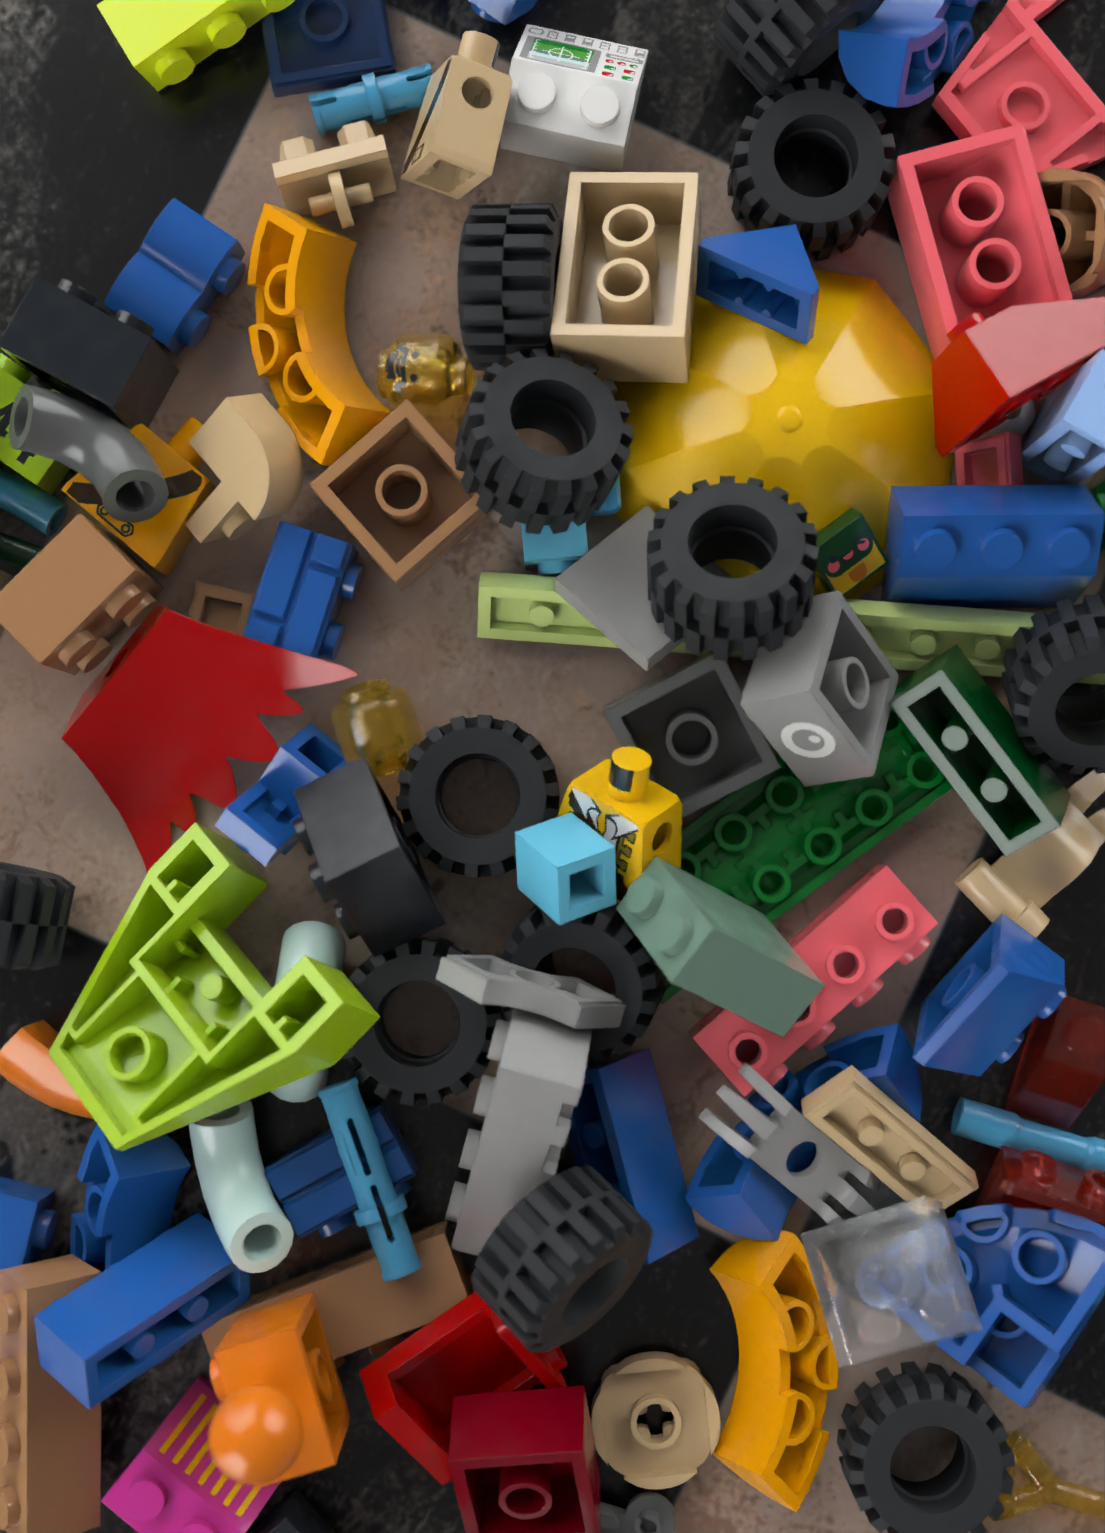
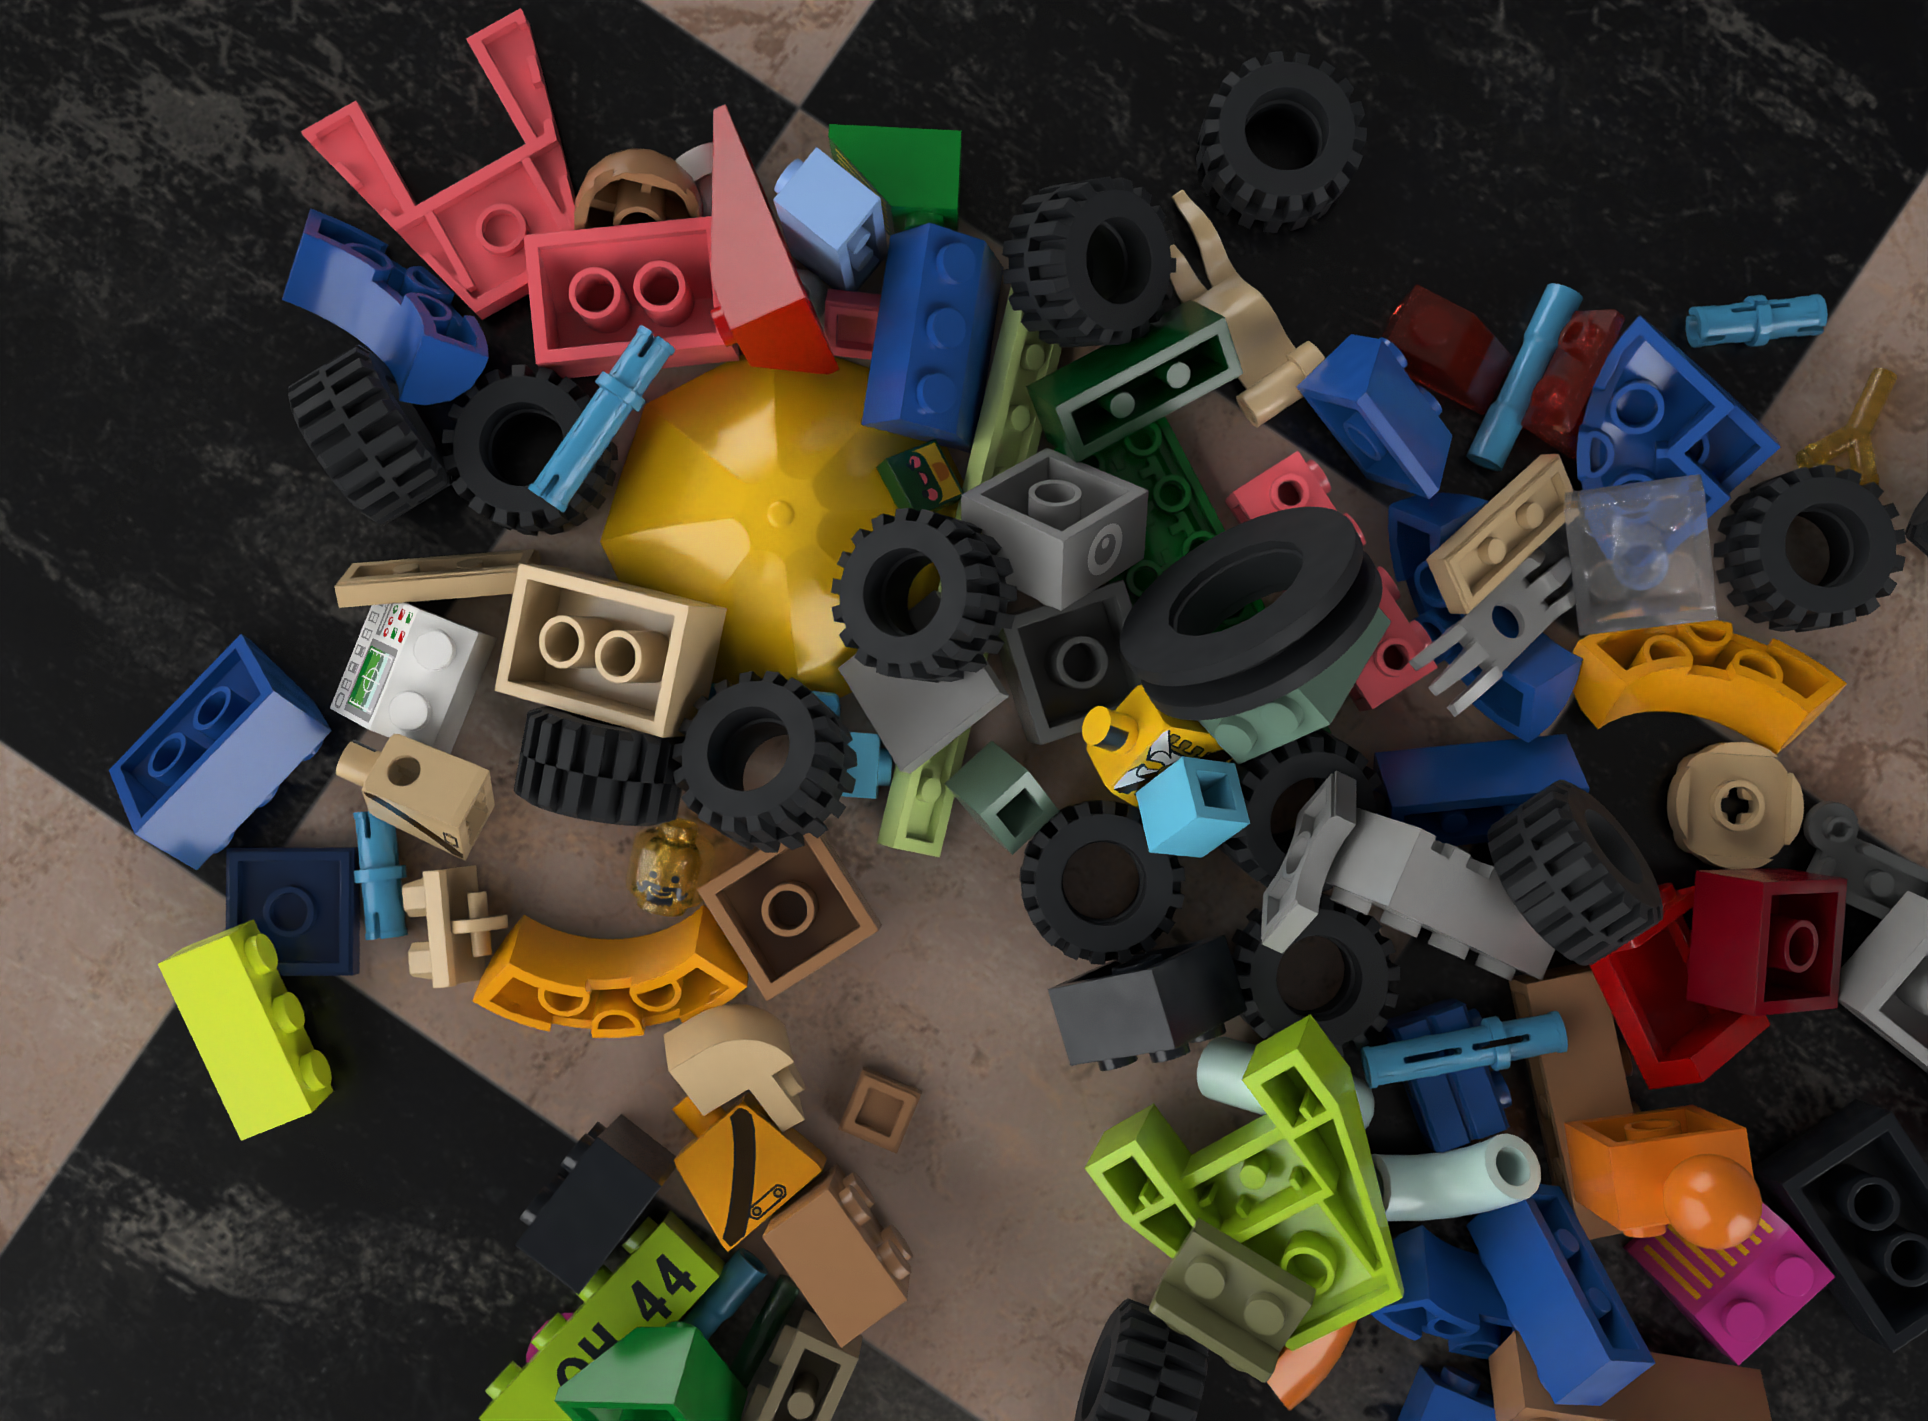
camera: 85 degrees left, 0 degrees up
(87, 983) = (1231, 1300): none -> olive bracket
(94, 447) = (693, 1211): dark grey cylinder -> none
(174, 712) = (966, 1172): red piece -> none
(178, 276) = (530, 1101): blue brick -> none
(264, 814) = (1088, 1098): blue brick -> none
(304, 592) = (873, 1026): blue brick -> none
(377, 724) = (1013, 971): clear yellow head -> none
(545, 686) = (1002, 797): none -> sand green brick
(669, 95) = (432, 578): none -> tan tile
(761, 278) = (635, 517): blue slope -> none
(792, 950) = (1310, 626): none -> black tyre
(855, 227) = (602, 418): none -> dark azure pin

